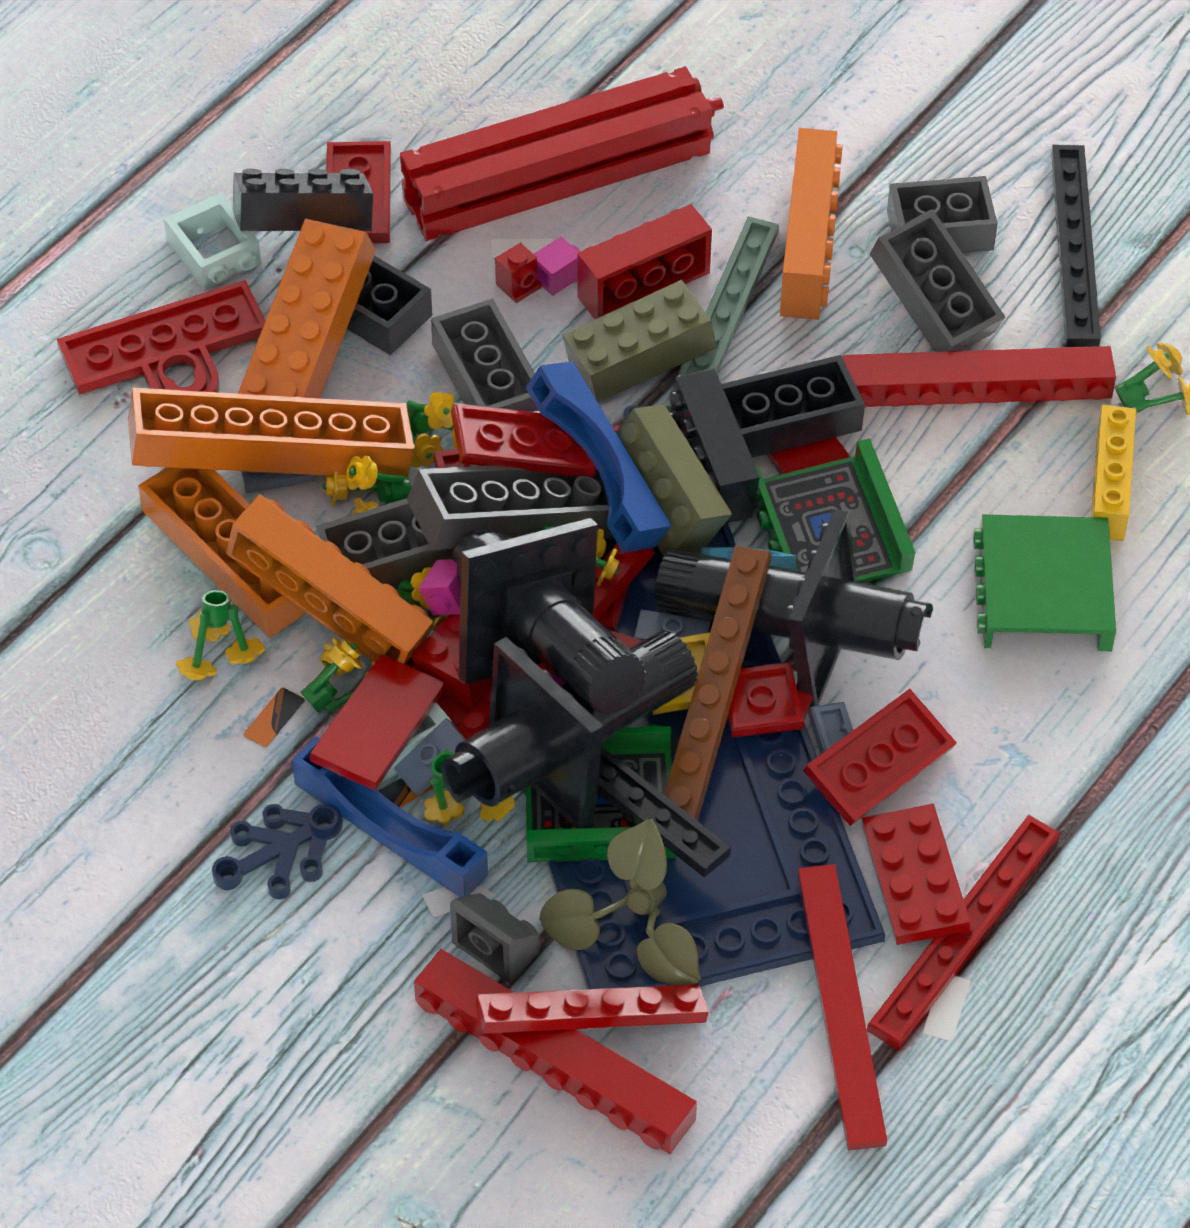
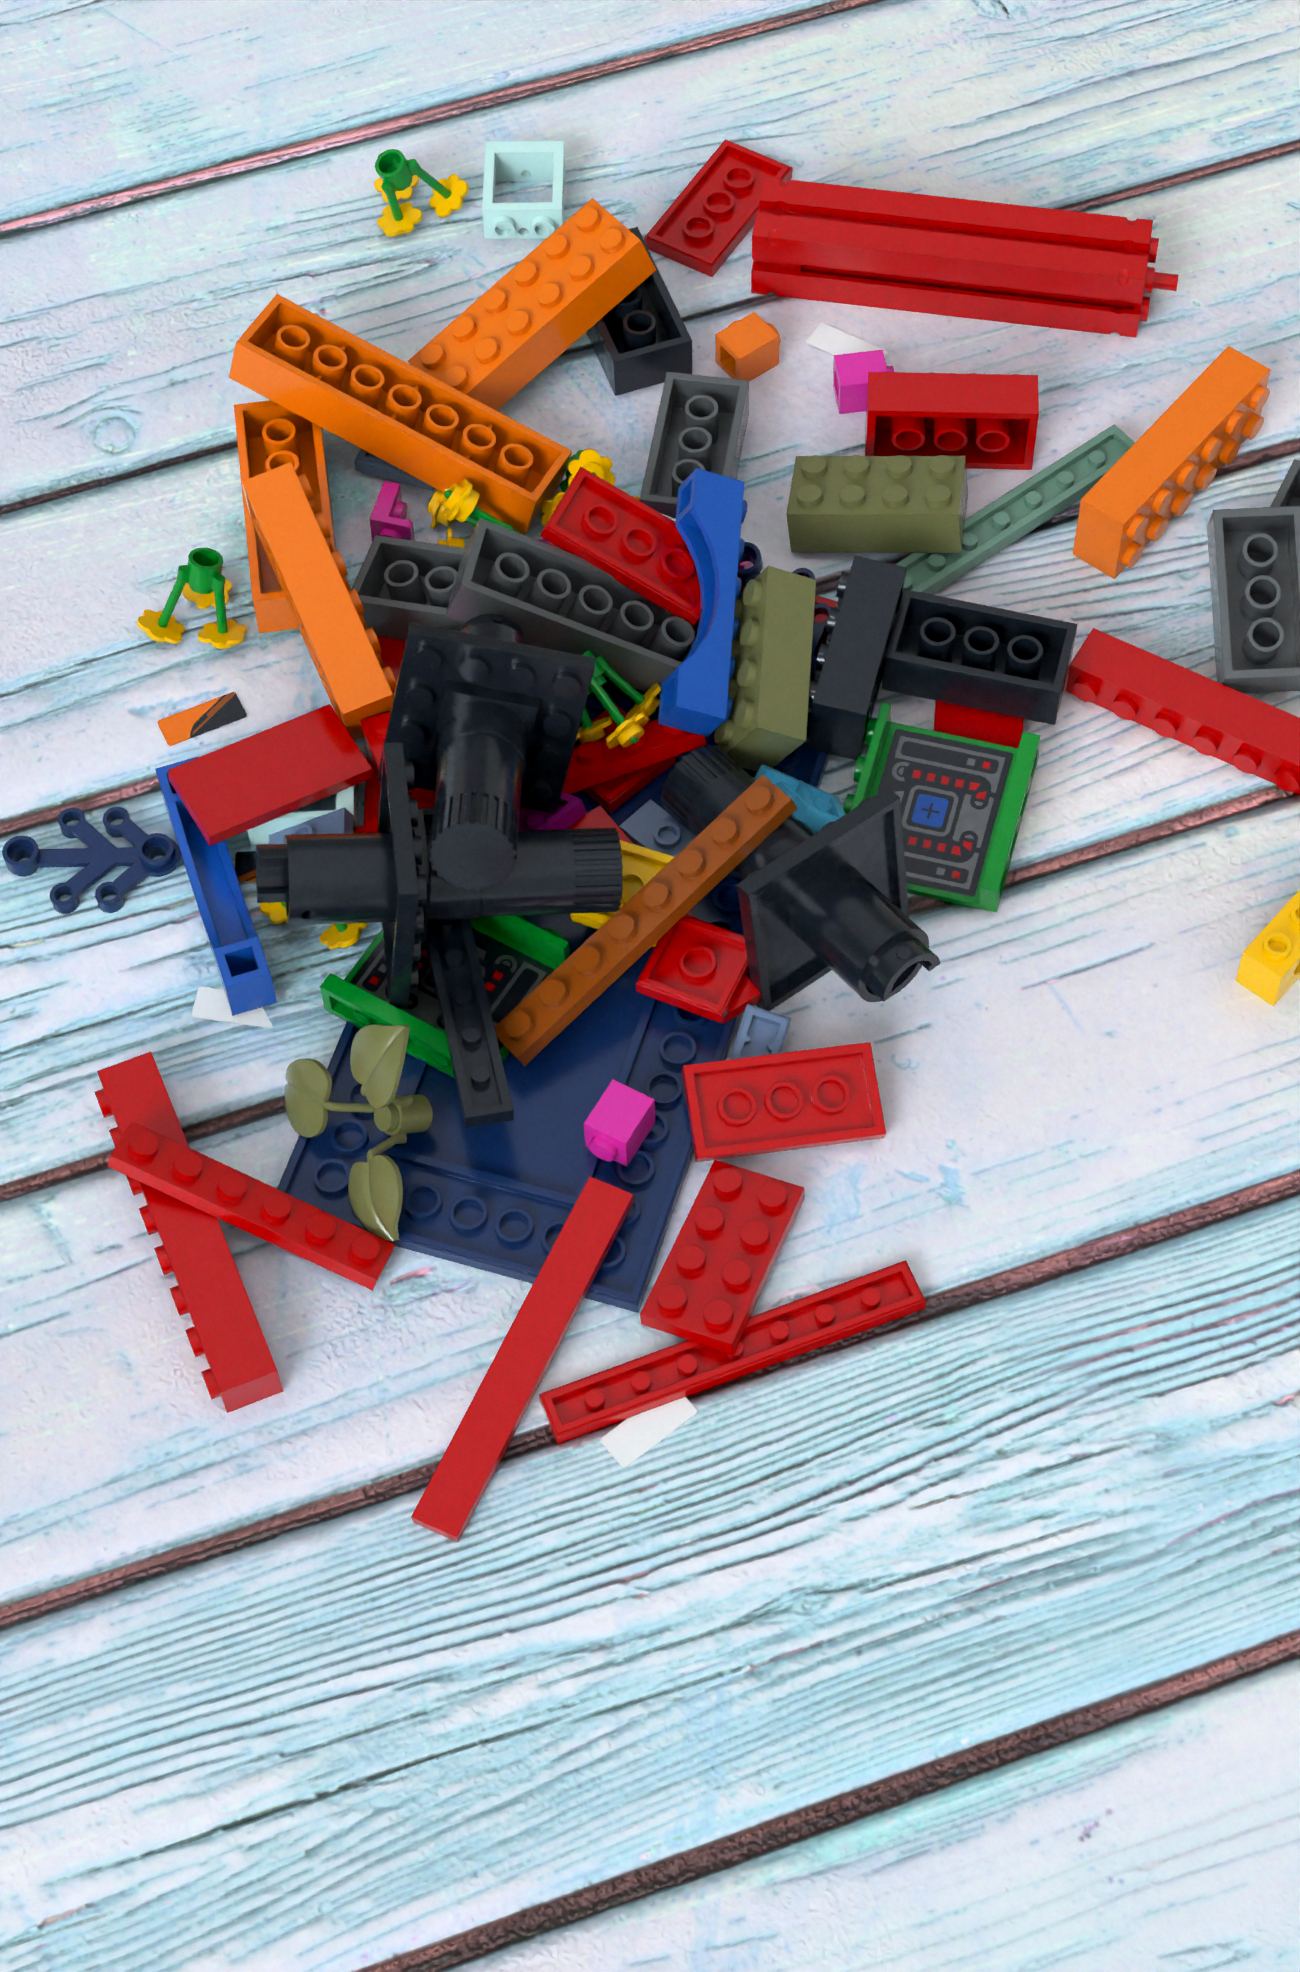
camera: 35 degrees right, 5 degrees up
(122, 268) = (396, 182): none -> plant
(164, 337) = (390, 267): red plate -> none
(287, 198) = (629, 183): black brick -> none
(302, 509) = (390, 514): none -> dark pink bracket
(337, 660) = (288, 688): plant -> none
(460, 279) = (747, 348): none -> orange brick
(493, 935) = (224, 1066): dark grey slope -> none
(517, 272) = (812, 369): red brick -> none
(790, 825) = (619, 1123): none -> dark pink brick
(1045, 576) = (1136, 1000): green panel -> none

